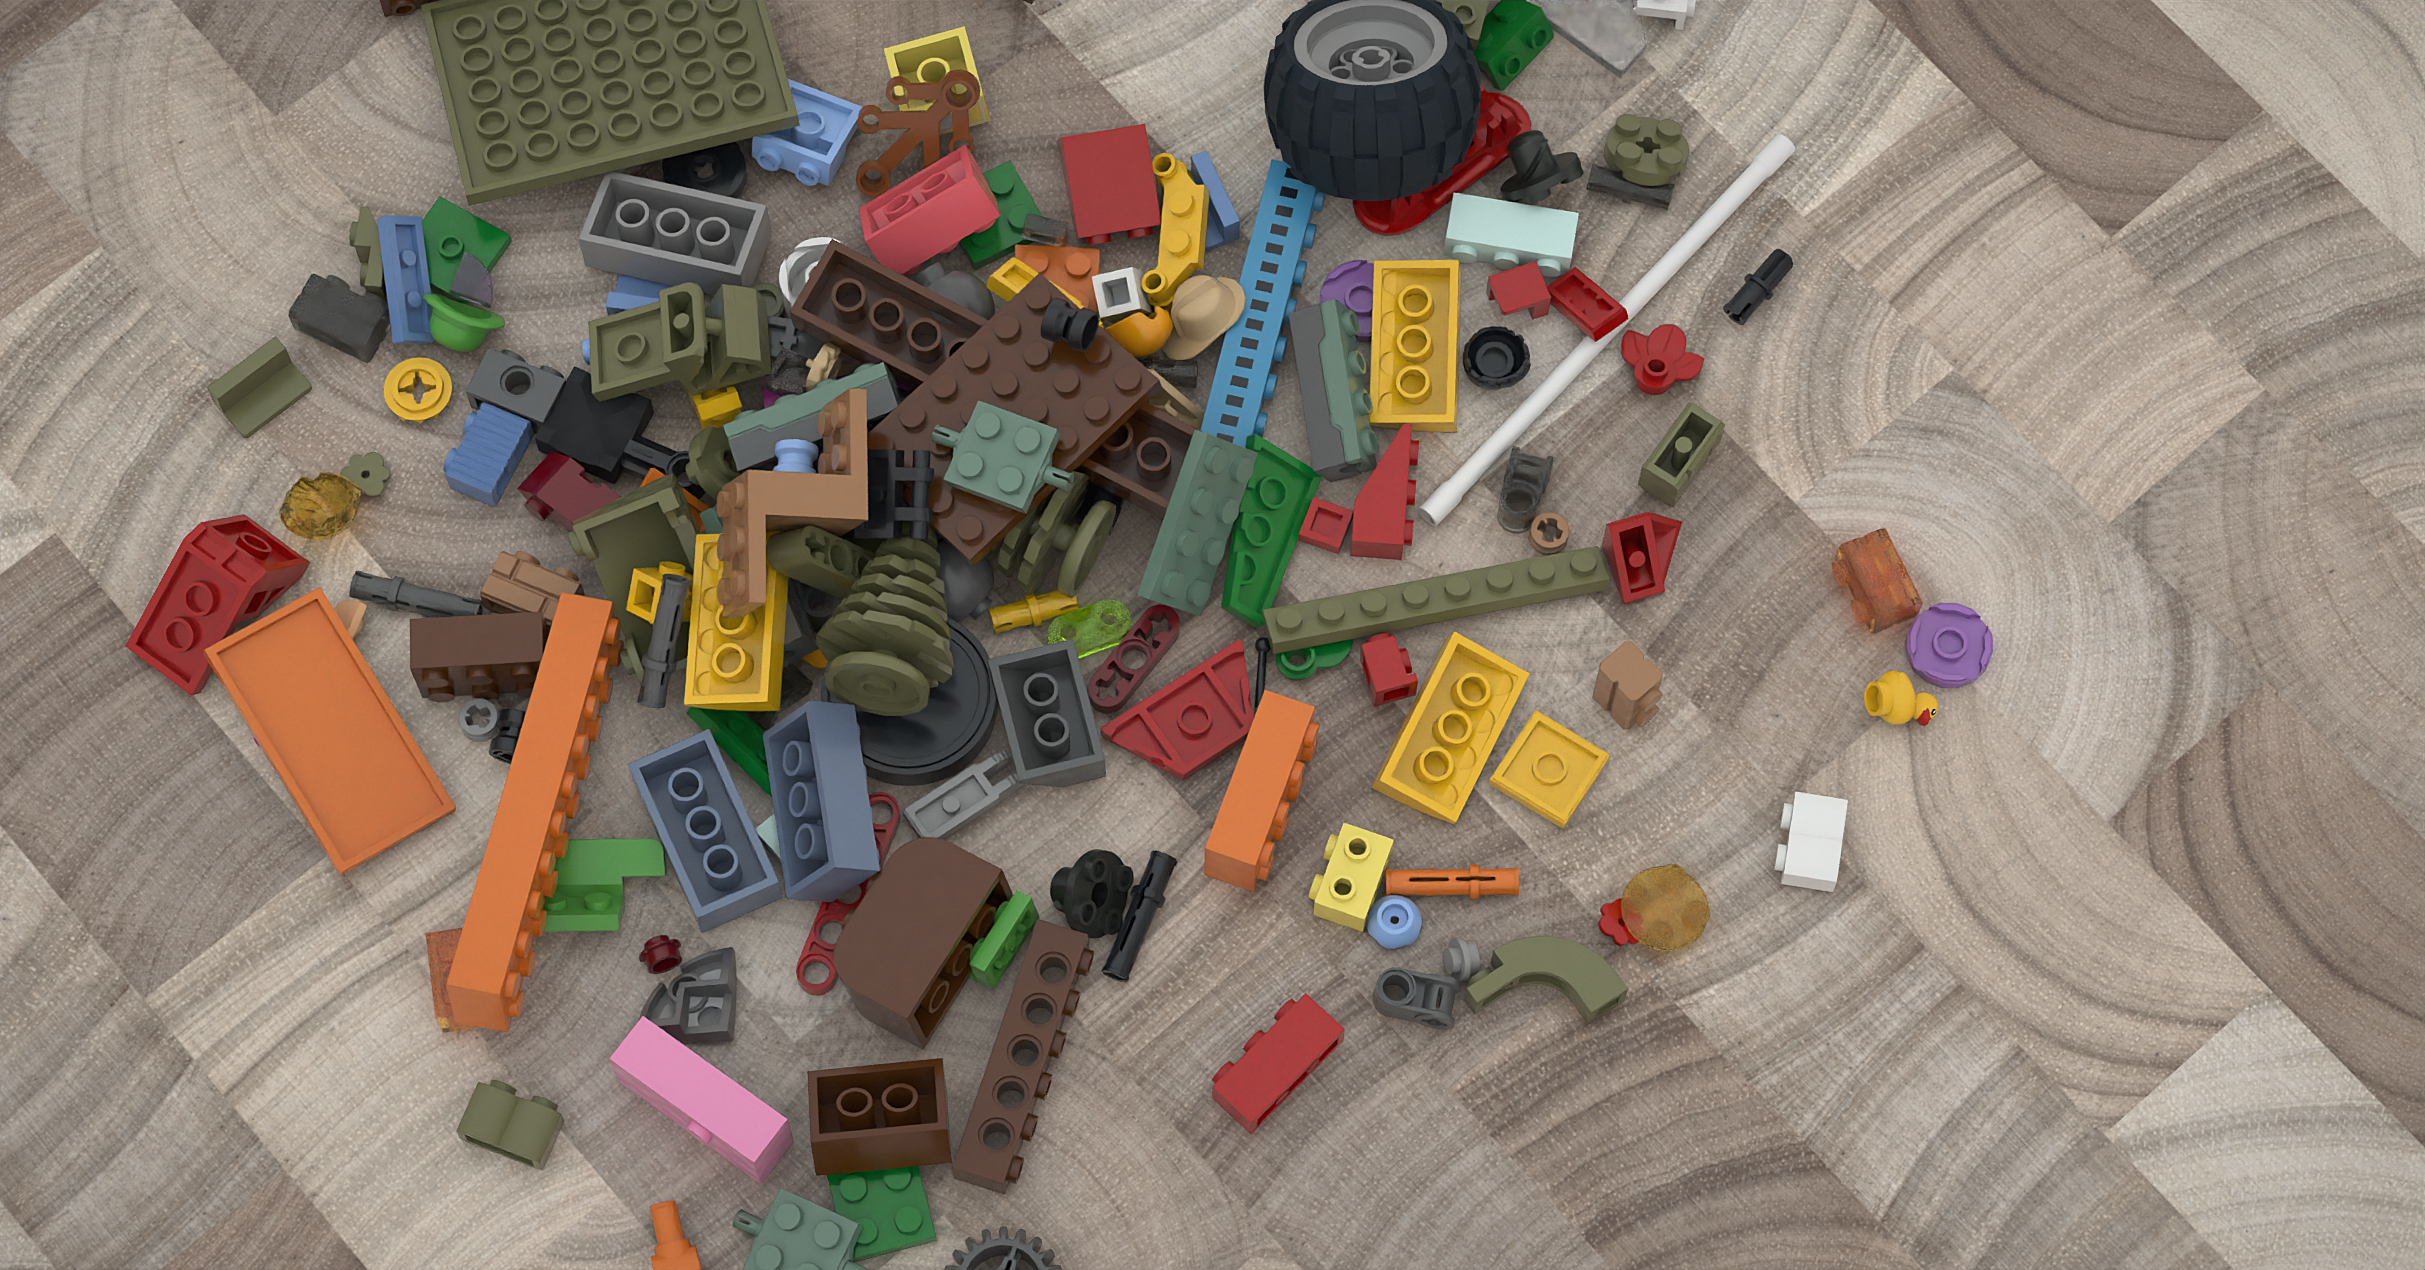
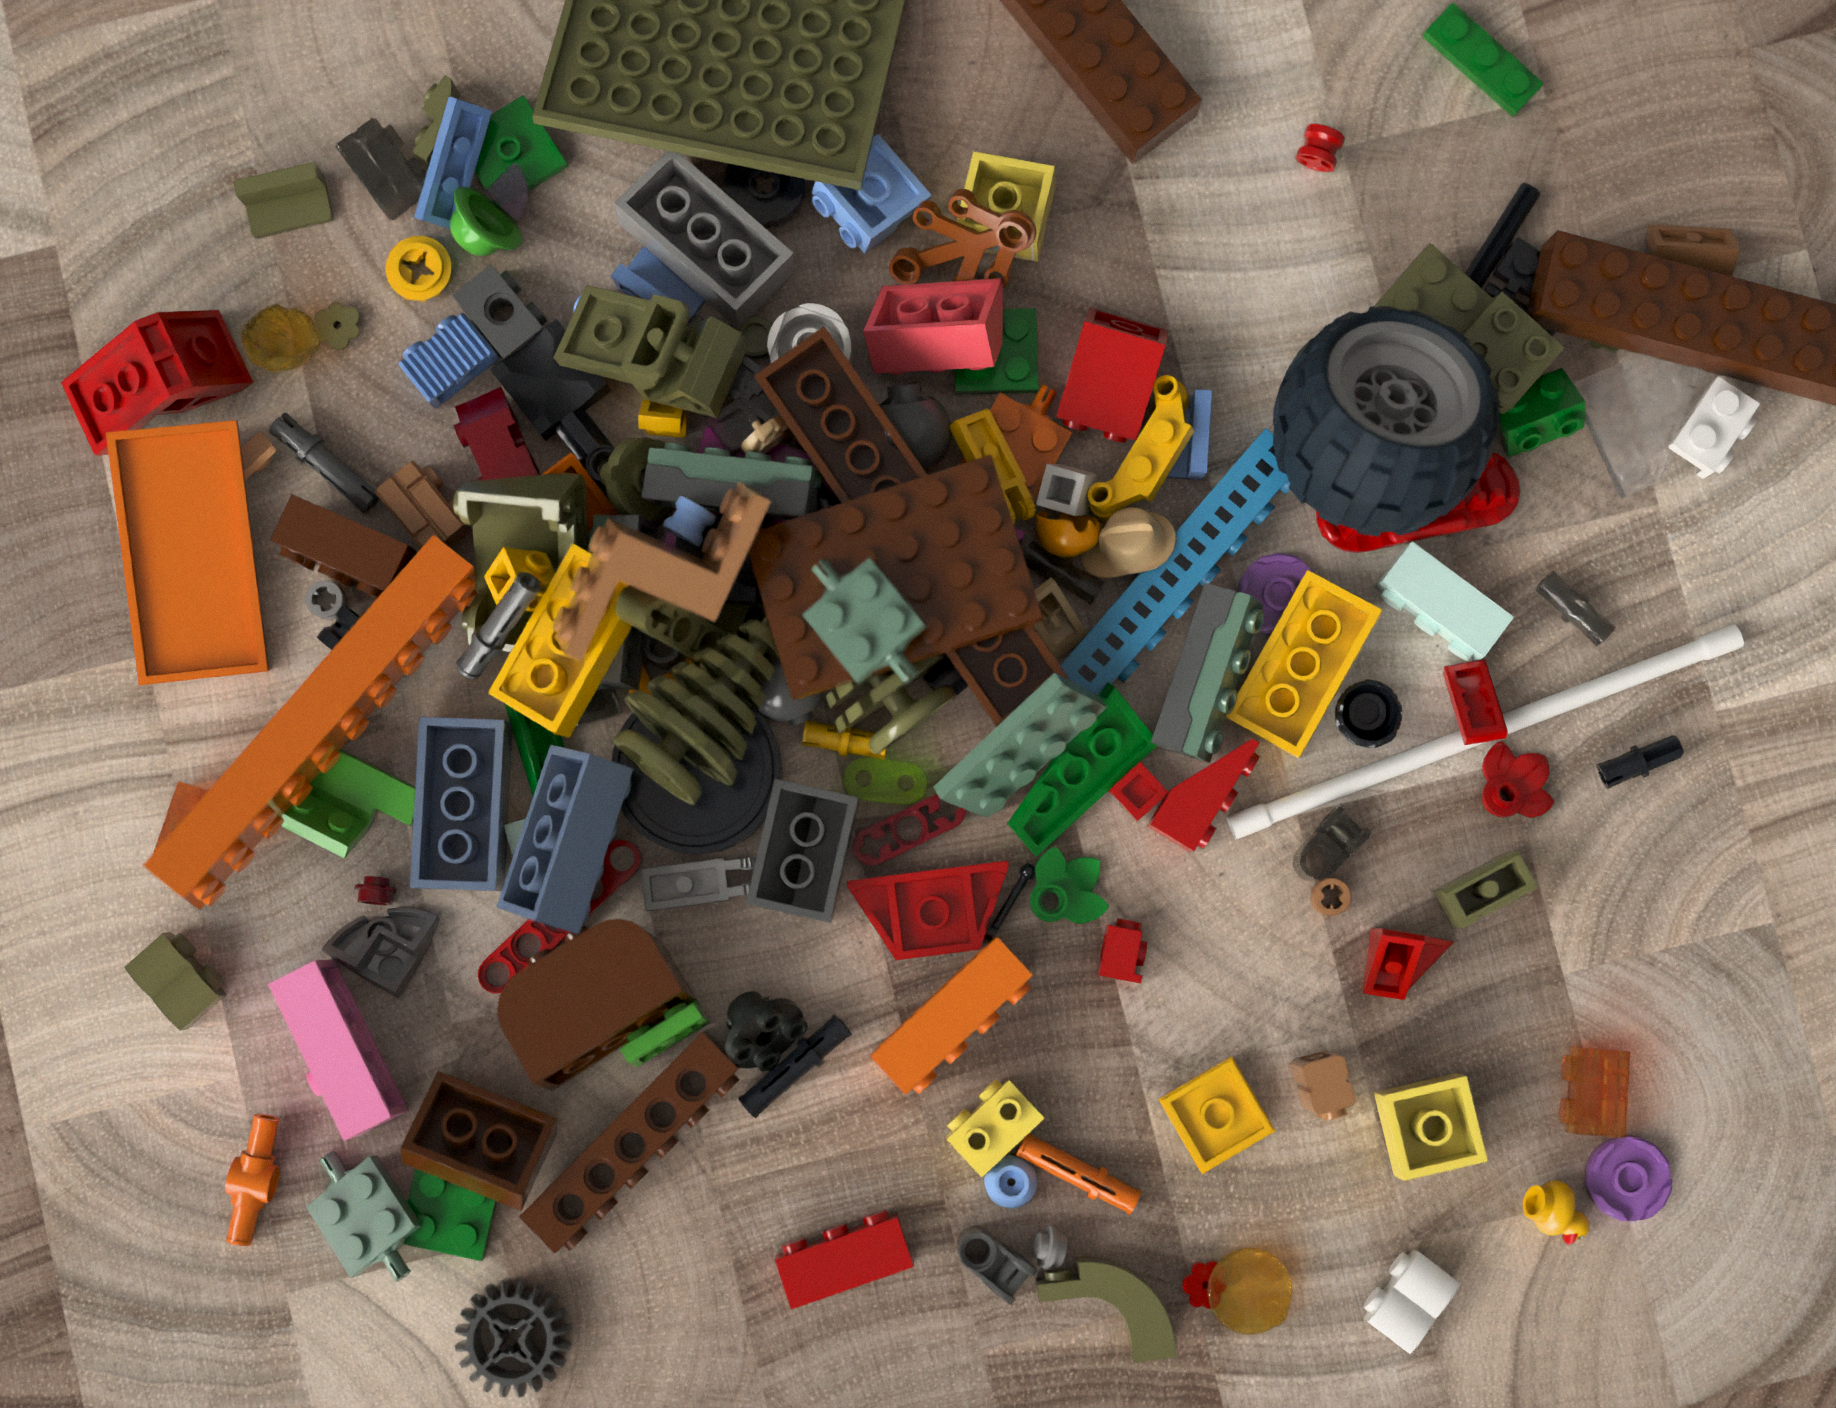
camera: 30 degrees right, 15 degrees up
(885, 495) = (746, 599): black plate -> none
(1044, 229) = (1029, 395): clear smoke tile -> none
(1069, 325) = (986, 527): black wheel -> none
(1435, 599) = (1198, 911): olive plate -> none
(1450, 729) = (1149, 1033): yellow slope -> none
(1520, 290) = (1422, 661): red panel -> none
(1537, 168) = (1499, 557): pearl dark grey plate -> none
(1632, 135) = (1622, 569): olive plate -> none
(1745, 678) = (1430, 1126): none -> light yellow brick

